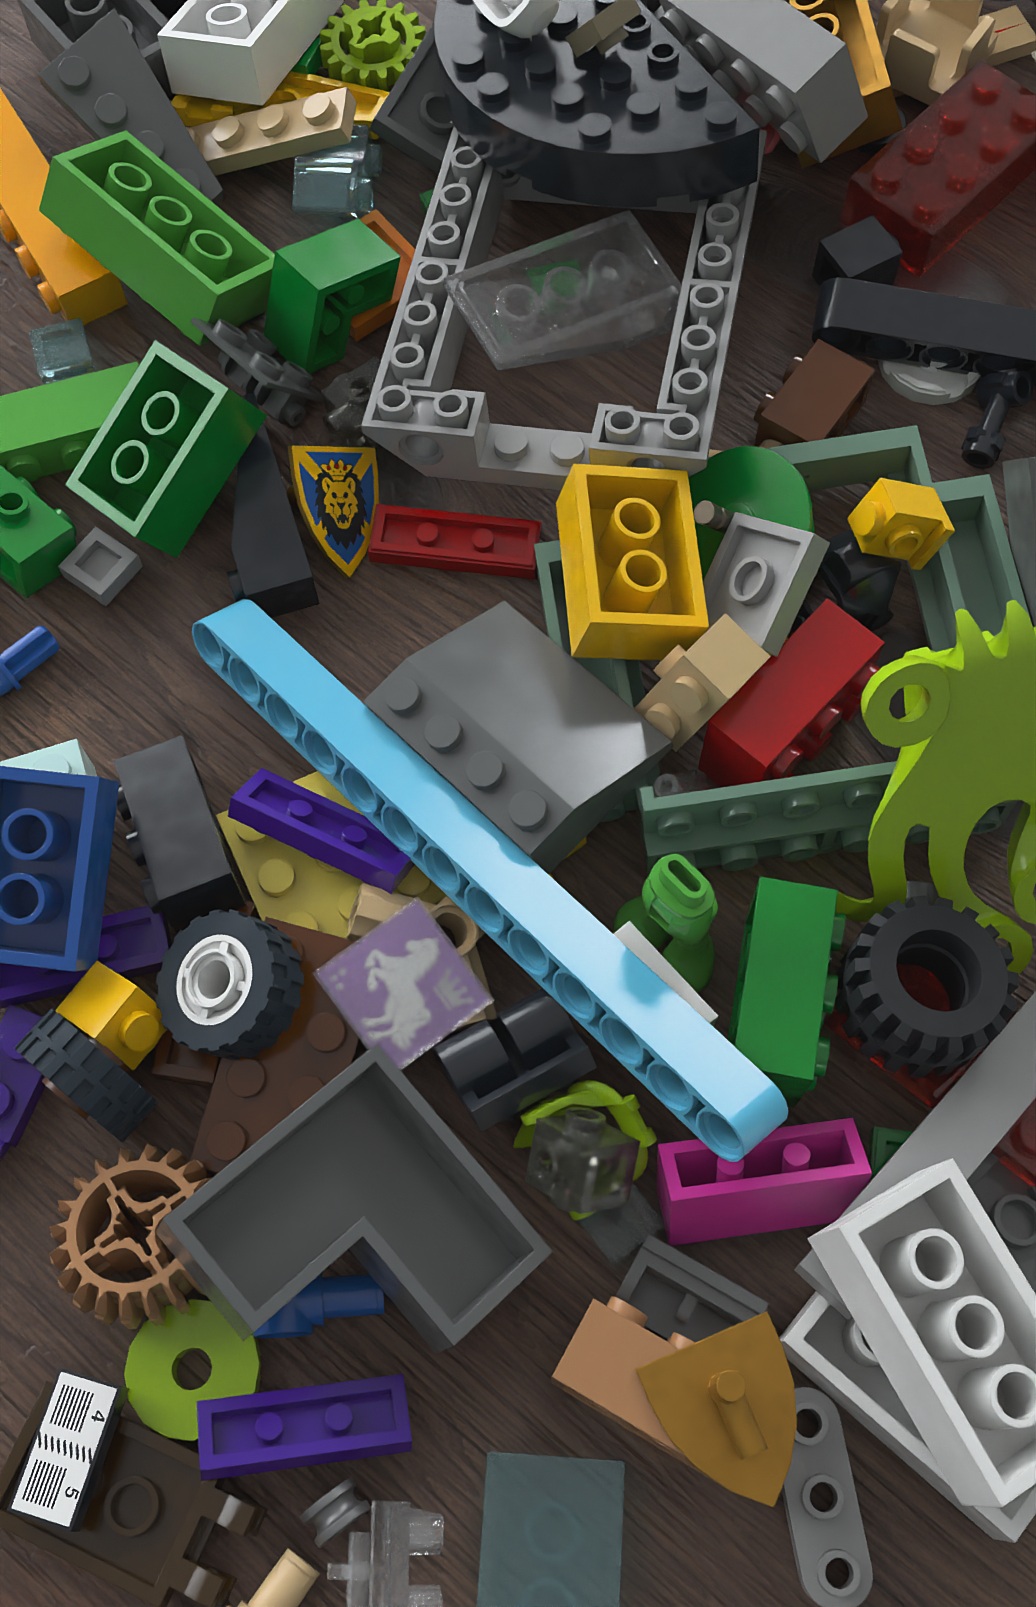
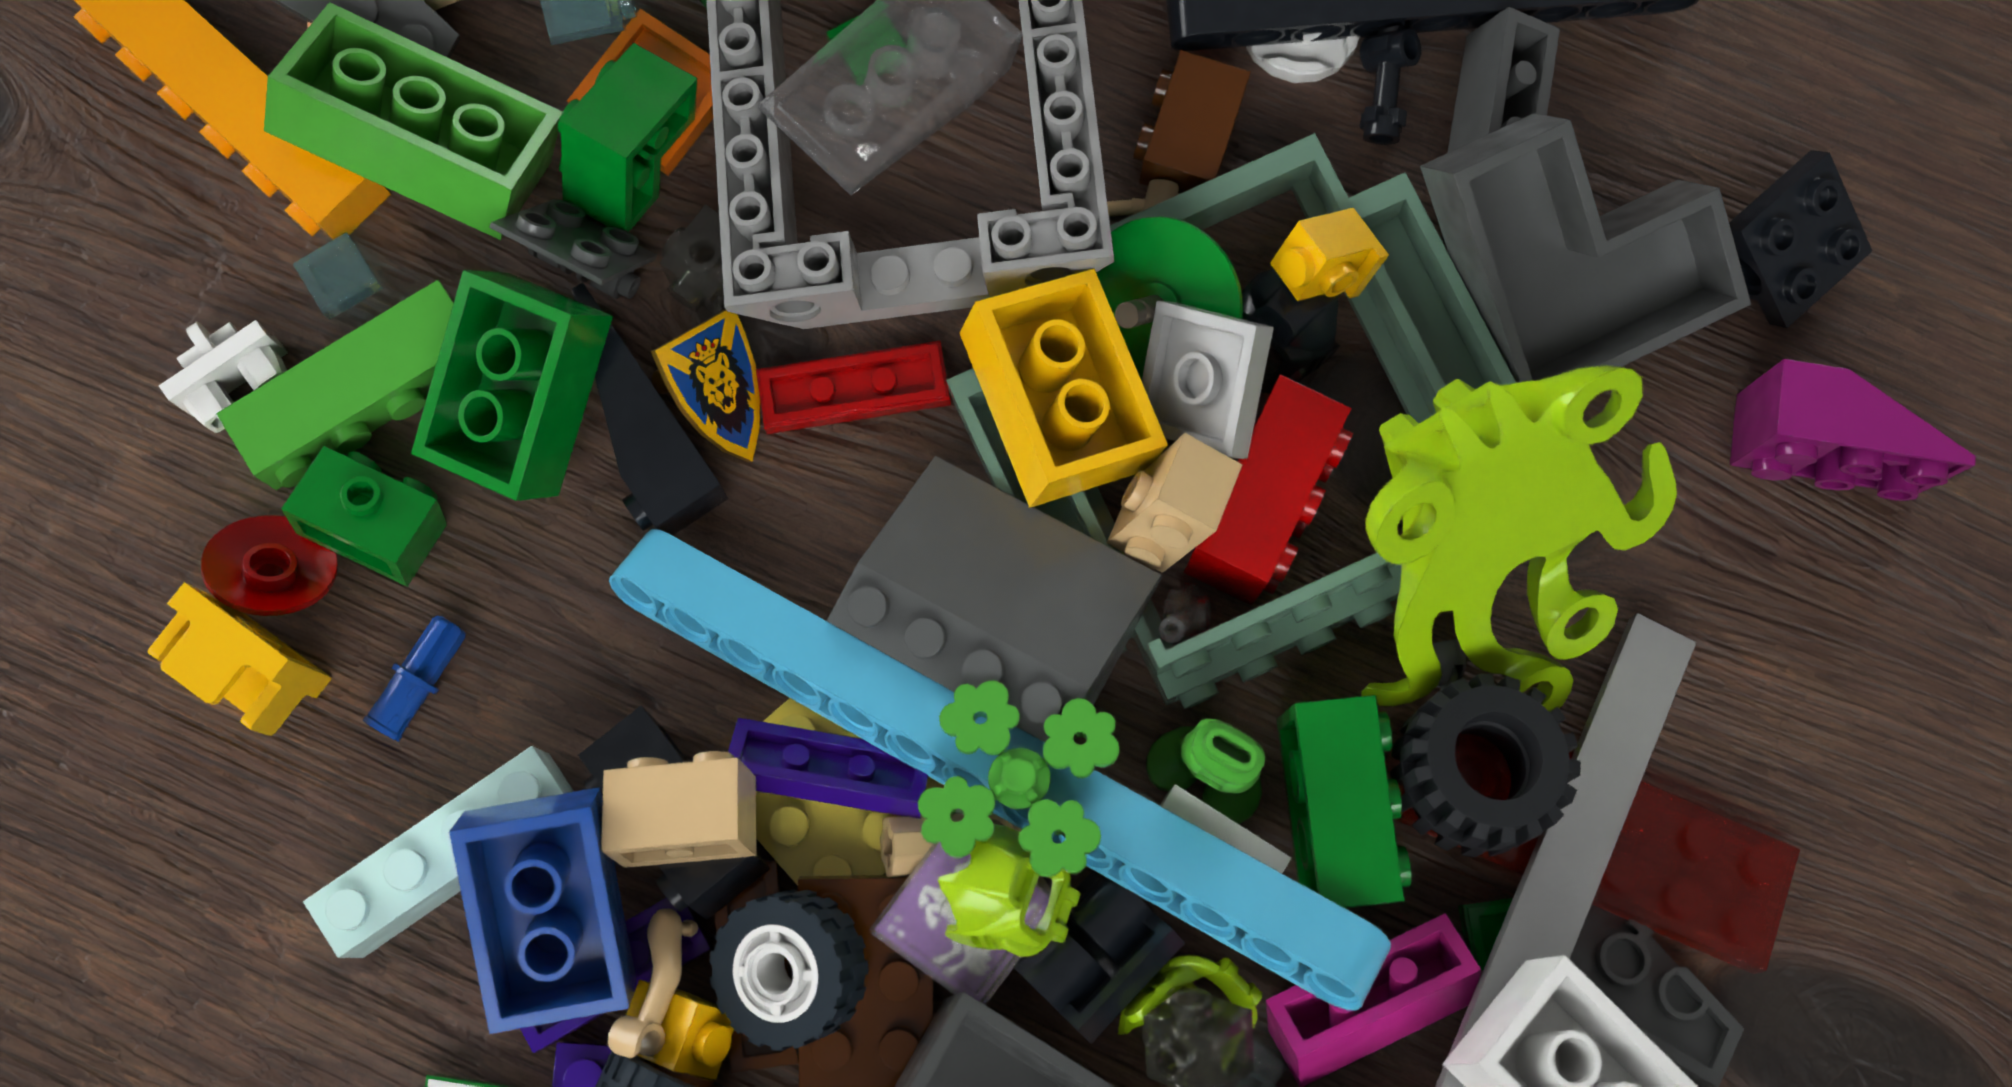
camera: 20 degrees left, 10 degrees up
(82, 999) = (644, 1034): none -> tan piece
(100, 566) = (478, 527): light grey plate -> none
(178, 816) = (679, 810): none -> tan brick
(432, 957) = (994, 895): none -> lime helmet
(485, 864) = (1019, 778): none -> bright green plant

